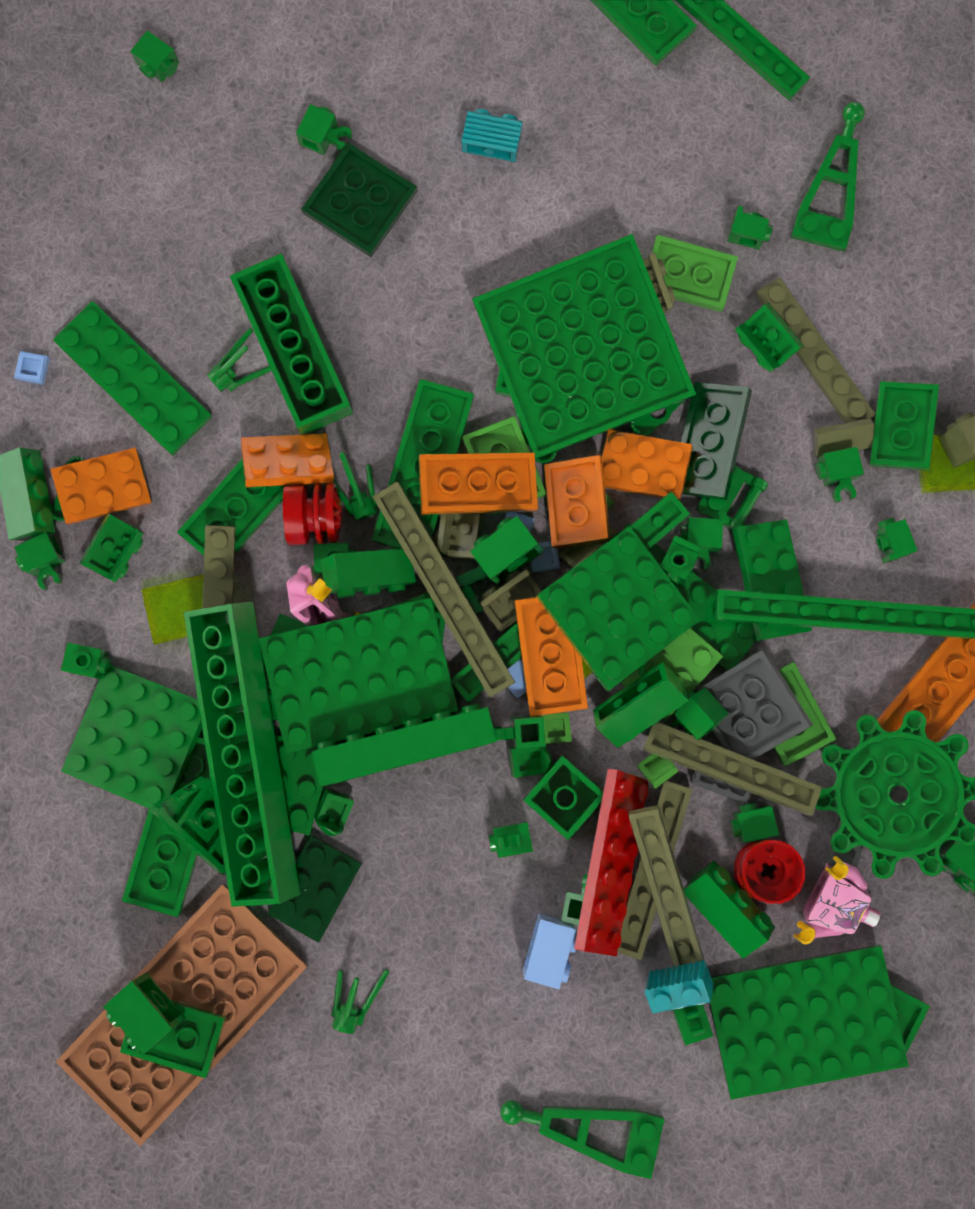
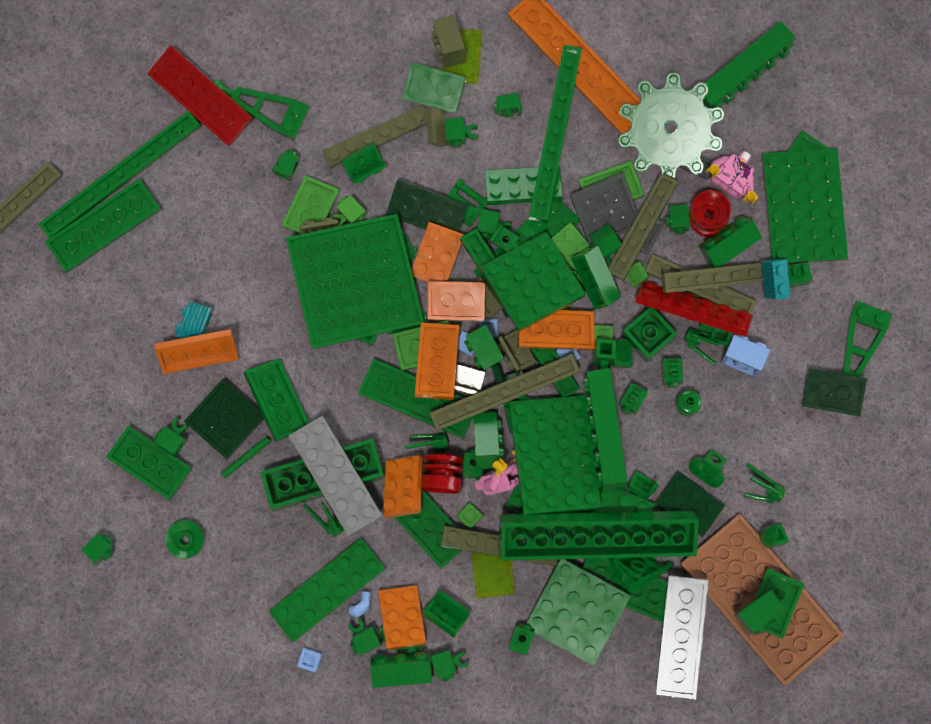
camera: 85 degrees left, 5 degrees down
(63, 439) = (365, 639): none -> green brick
(111, 898) = (682, 637): none -> plate
(112, 430) = (362, 607): none -> light blue arm
(173, 161) = (177, 532): none -> green dish
(261, 565) = (469, 516): none -> bright green tile
(278, 1022) = (773, 536): none -> green plate
(281, 105) = (149, 463): none -> green plate
(286, 358) = (335, 476): none -> light grey plate
(309, 238) = (245, 457): none -> green bar
(367, 911) = (708, 470): none -> green bracket
(394, 266) = (276, 399): none -> green plate
(449, 141) = (196, 351): none -> orange plate
(461, 784) = (632, 399): none -> green brick
(473, 861) = (686, 409): none -> green head
(511, 1098) = (834, 392): none -> dark green plate
(570, 868) = (695, 337): none -> green plant
(692, 329) = (349, 211): none -> bright green brick
(836, 89) = (200, 95): none -> red plate

